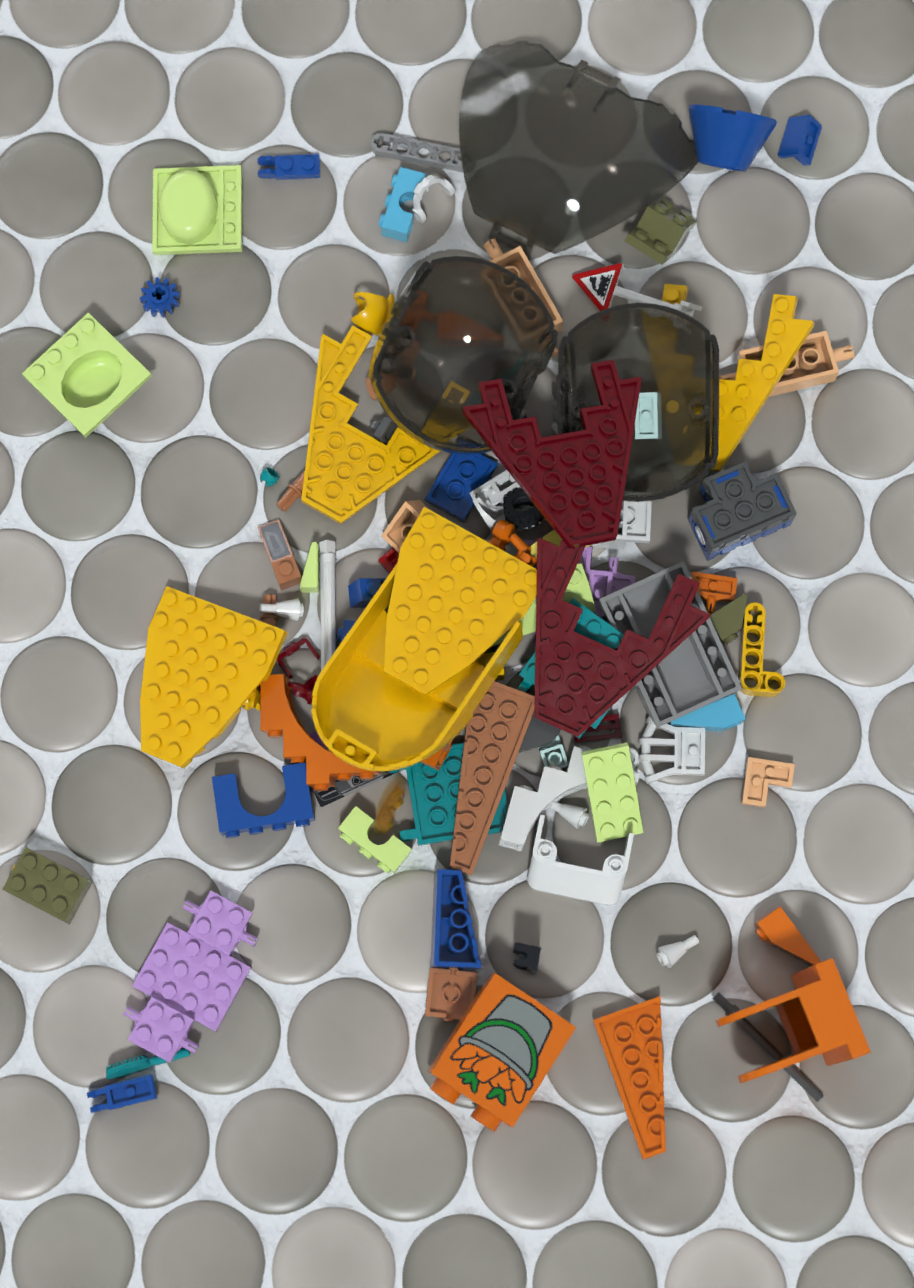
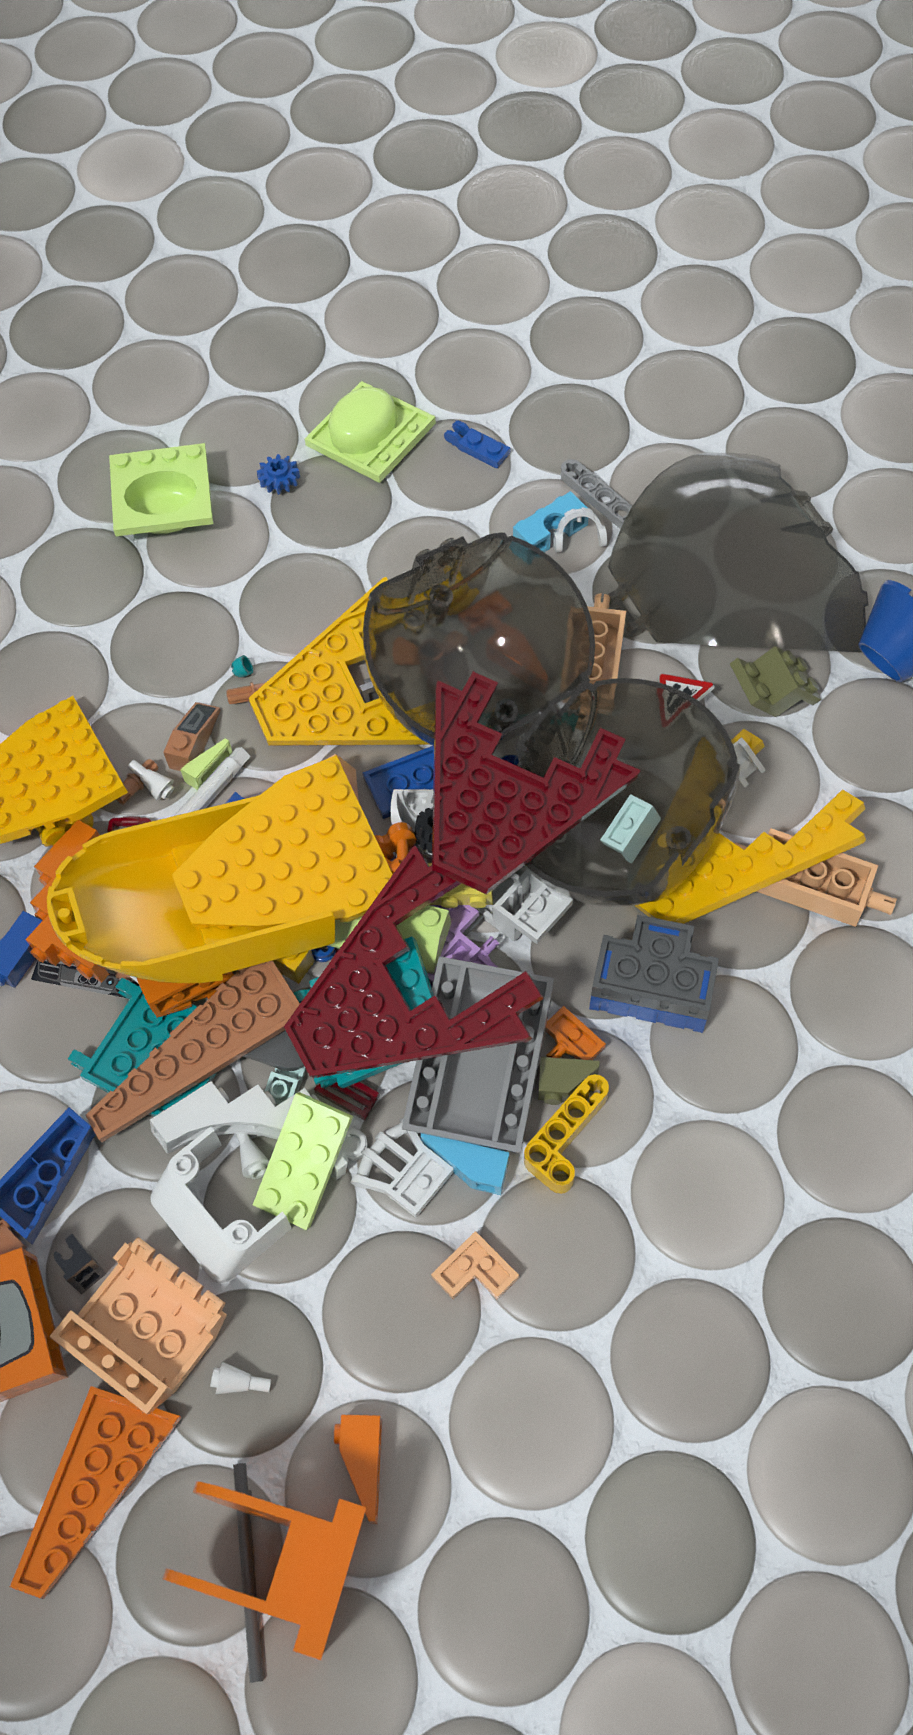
camera: 40 degrees right, 15 degrees down
(385, 818) = (73, 1027): clear yellow slope -> none
(389, 855) = (39, 1021): yellowish green arch -> none
(595, 962) = (143, 1326): none -> light nougat slope

